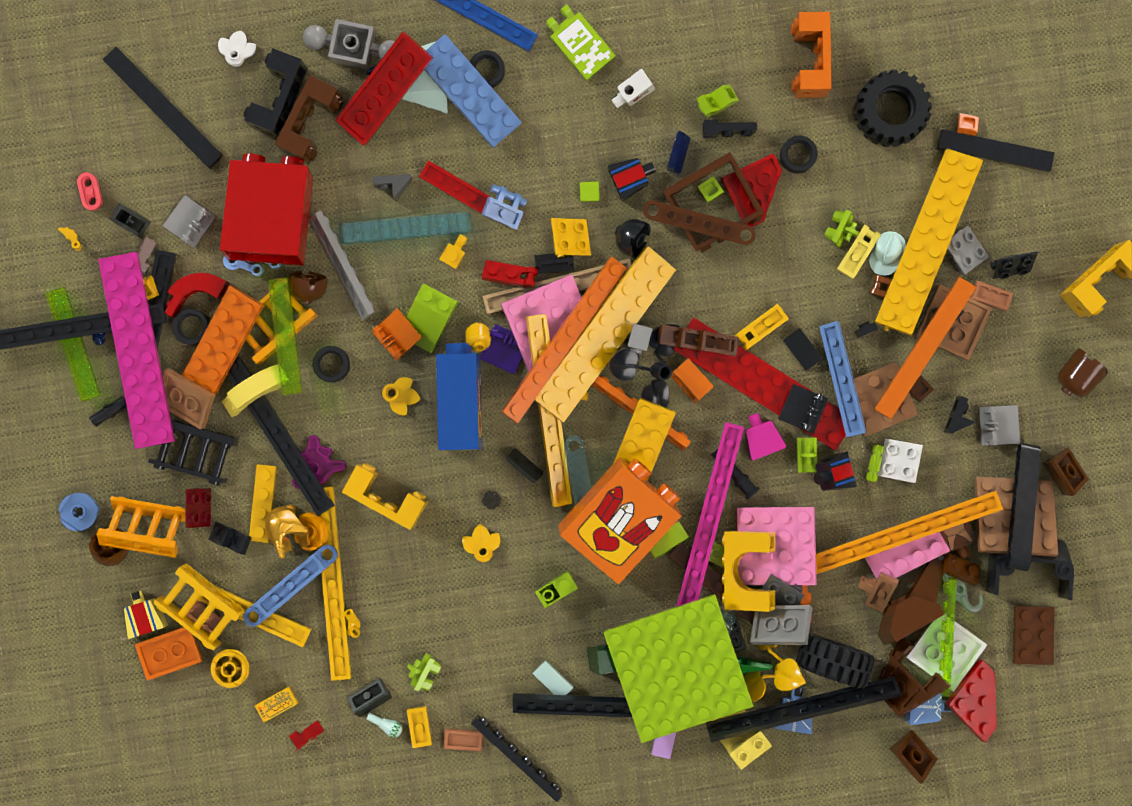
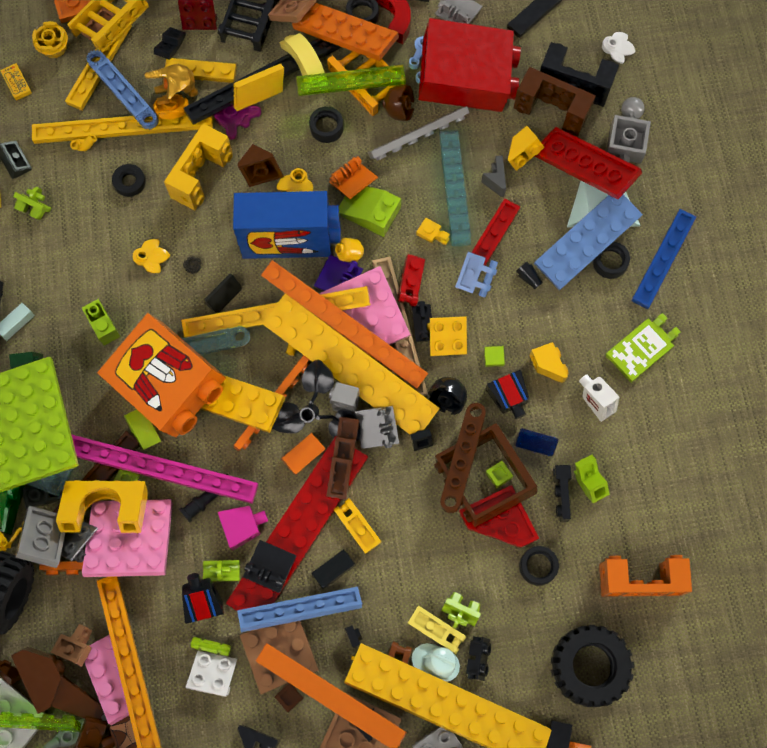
camera: 90 degrees right, 15 degrees down
(292, 436) = (258, 87): none -> yellow tile
(361, 154) = (523, 148): none -> yellow slope
(383, 569) = (122, 171): none -> black tyre
(385, 432) = (259, 166): none -> reddish brown slope
(502, 154) = (529, 275): none -> black cone
(596, 138) = (548, 362): none -> yellow slope
(666, 306) = (378, 427): none -> hinge
(676, 264) = (421, 439): none -> black plate
(876, 211) = (481, 649): none -> black hinge

